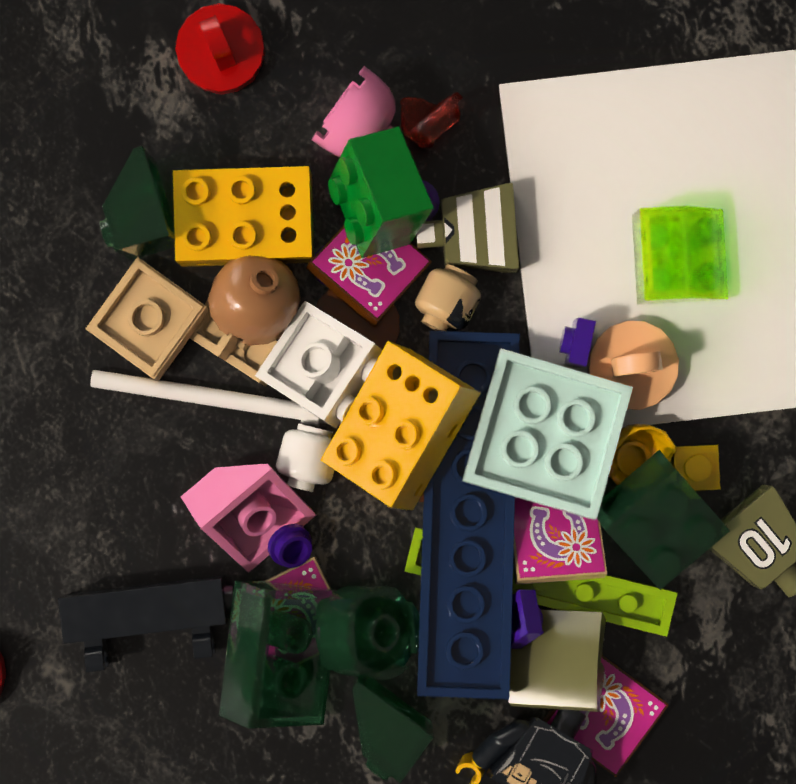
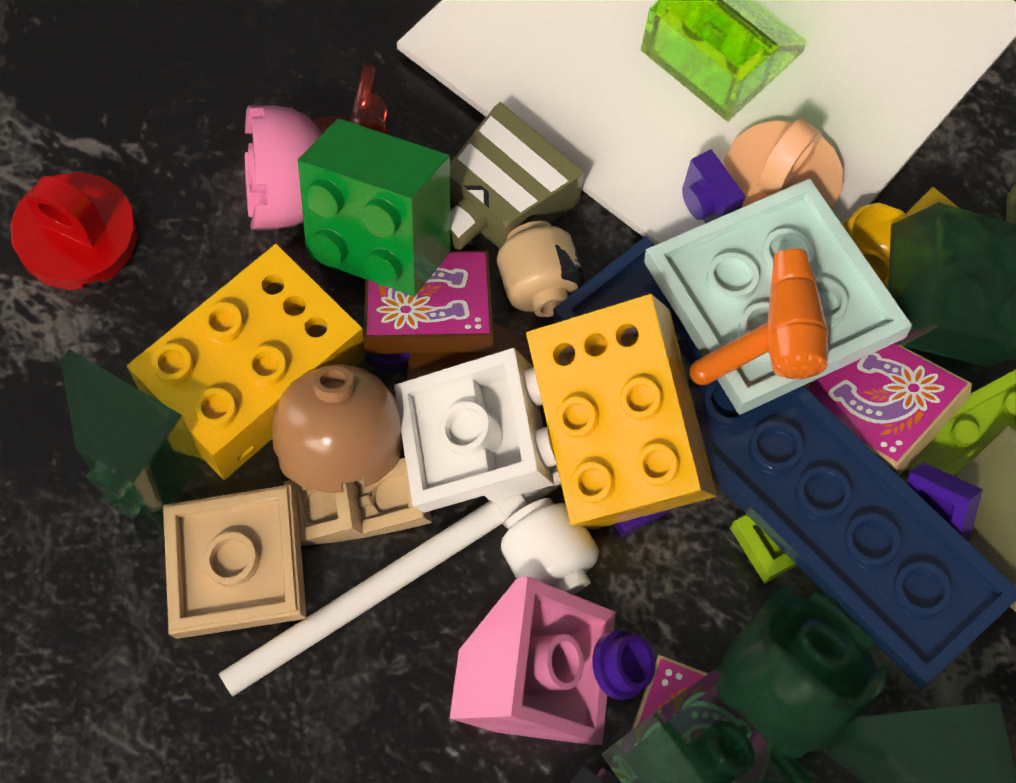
camera: 50 degrees left, 20 degrees down
(518, 470) = (794, 330): none -> orange piece

